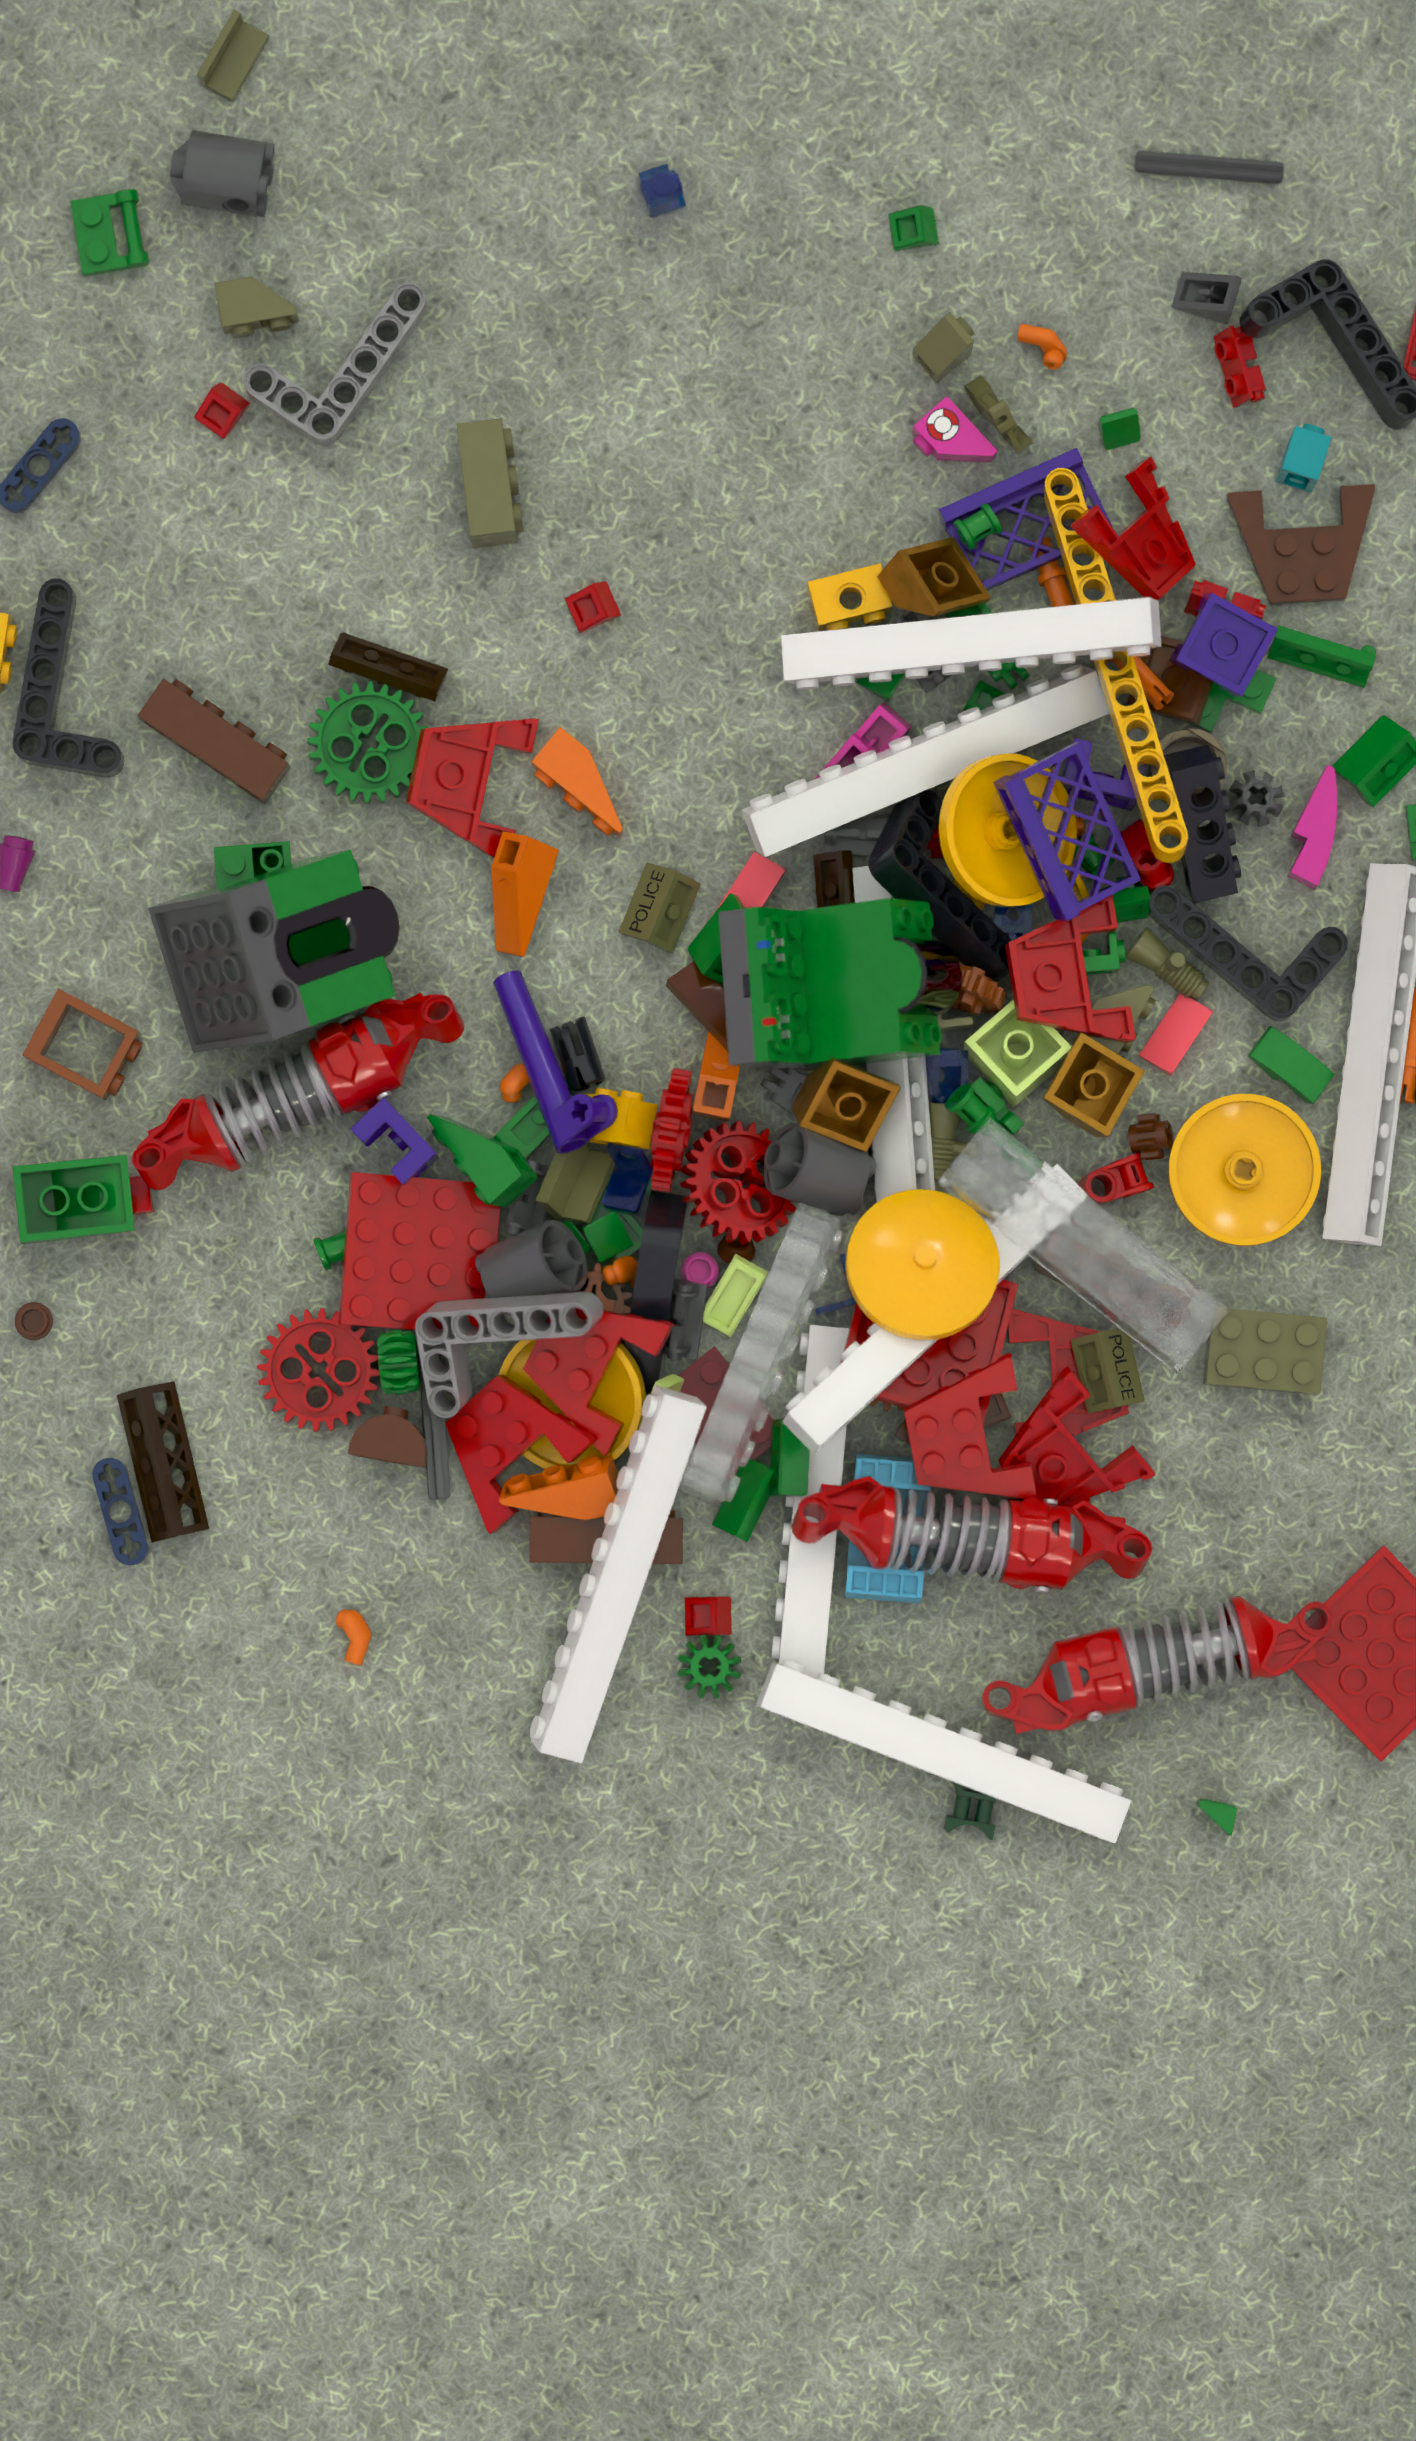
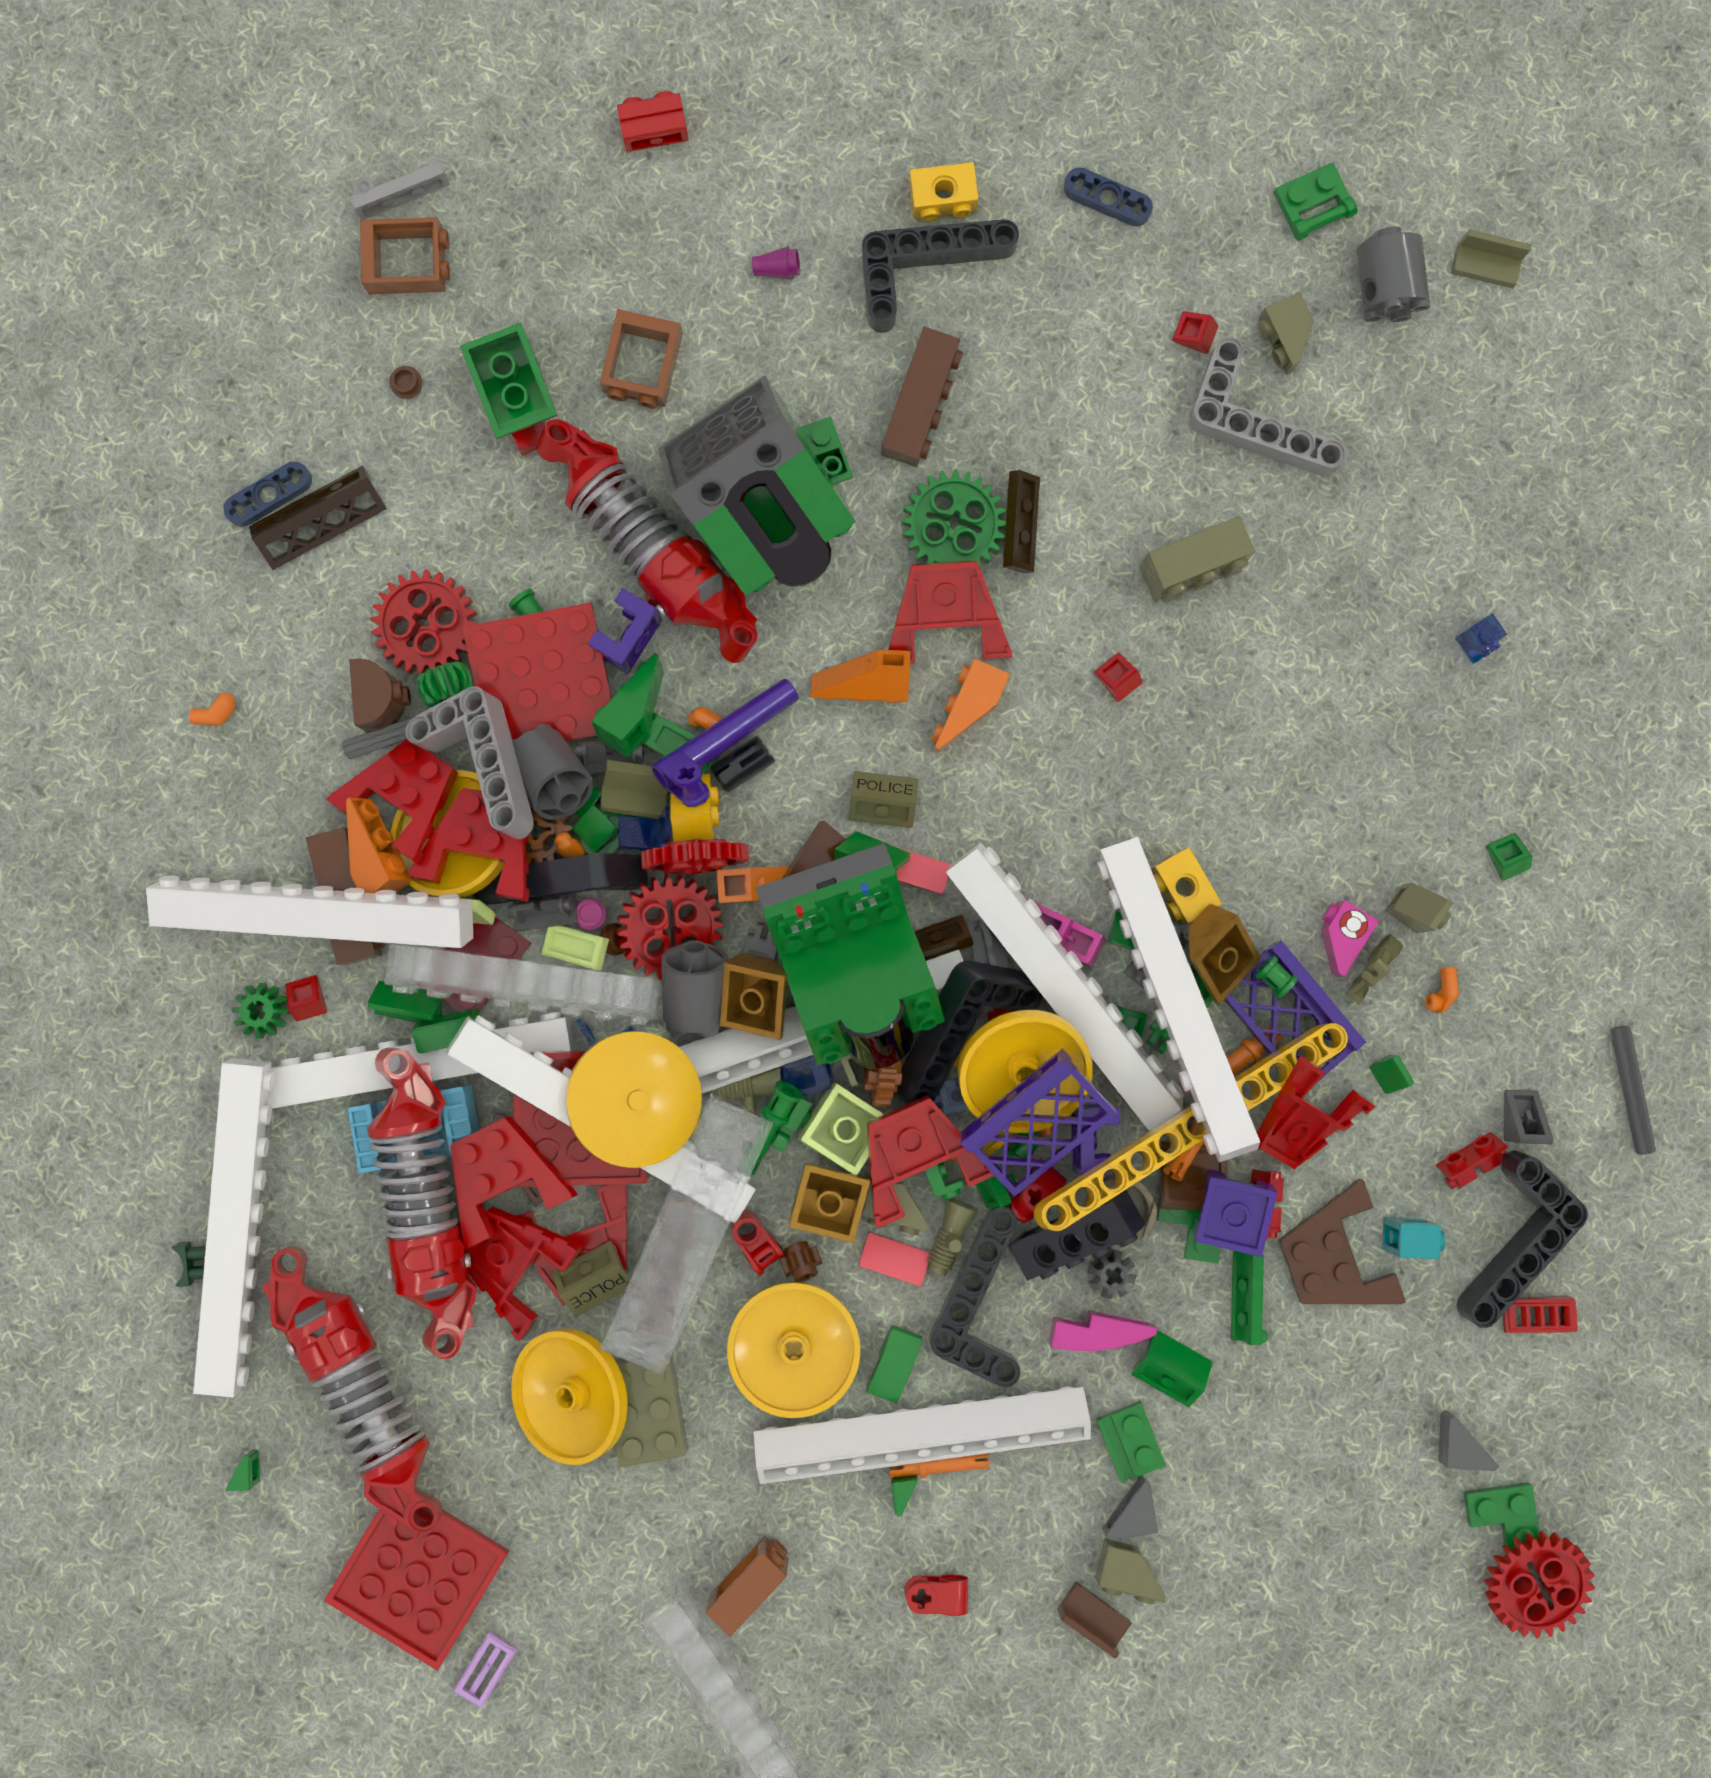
camera: 70 degrees right, 0 degrees up
(1228, 1428) = (569, 1396): none -> yellow dish

